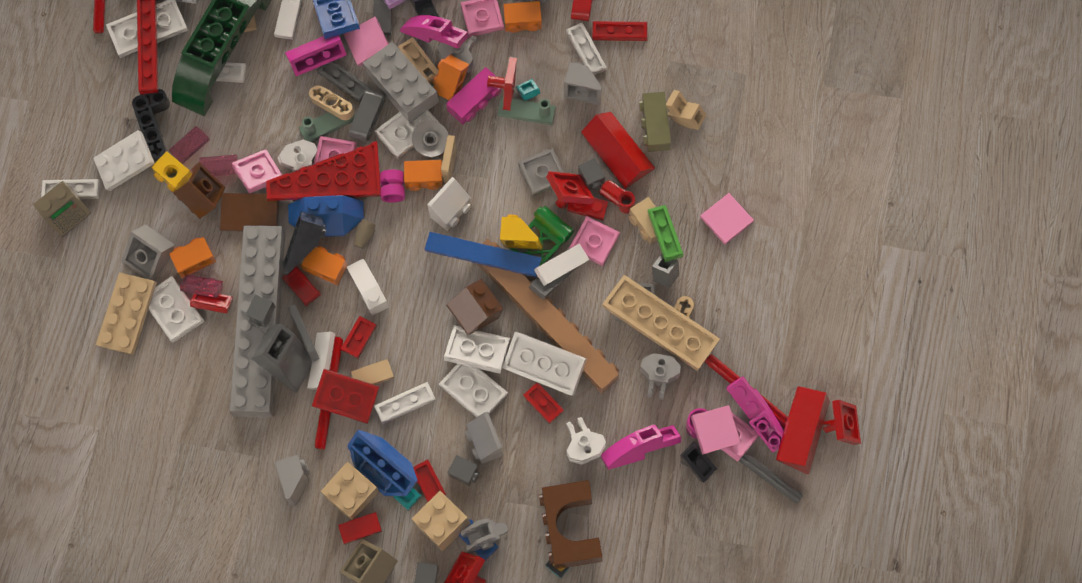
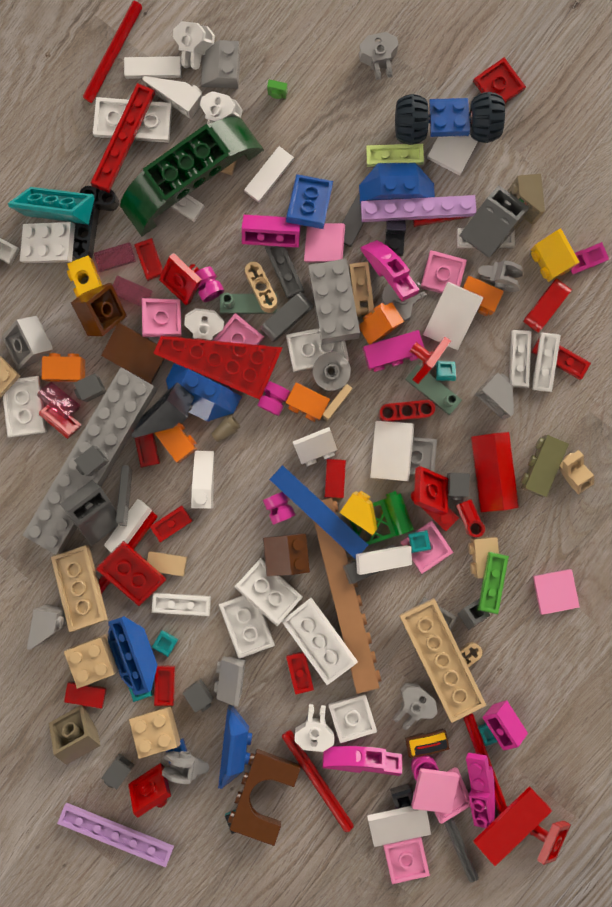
camera: 30 degrees right, 15 degrees up
(115, 126) = (54, 205): none -> teal slope
(221, 131) = (149, 259): none -> red tile
(224, 261) = (89, 388): none -> dark grey brick
(257, 130) = (180, 278): none -> red tile
(280, 122) = (209, 287): none -> dark pink wheel
(305, 433) = (79, 588): none -> tan plate
(408, 444) = (164, 643): none -> teal tile
(446, 272) = (279, 507): none -> dark pink wheel
(482, 224) = (335, 478): none -> red tile
(508, 40) = (453, 315): none -> white tile
(517, 130) = (415, 407): none -> red beam
(519, 176) = (392, 450): none -> white tile
(521, 498) = (234, 747): none -> blue wedge
(584, 236) = (419, 541): none -> teal tile
(608, 39) = (546, 362): none -> white tile
(611, 416) = (352, 718): none -> white plate
(612, 489) = (318, 782): none -> red axle
(688, 402) = (427, 744): none -> slope
(704, 484) = (398, 825): none -> white tile
(730, 515) = (406, 860): none -> bright pink tile
(740, 365) = (486, 734): none -> teal tile
(746, 348) = (505, 725): none -> dark pink brick

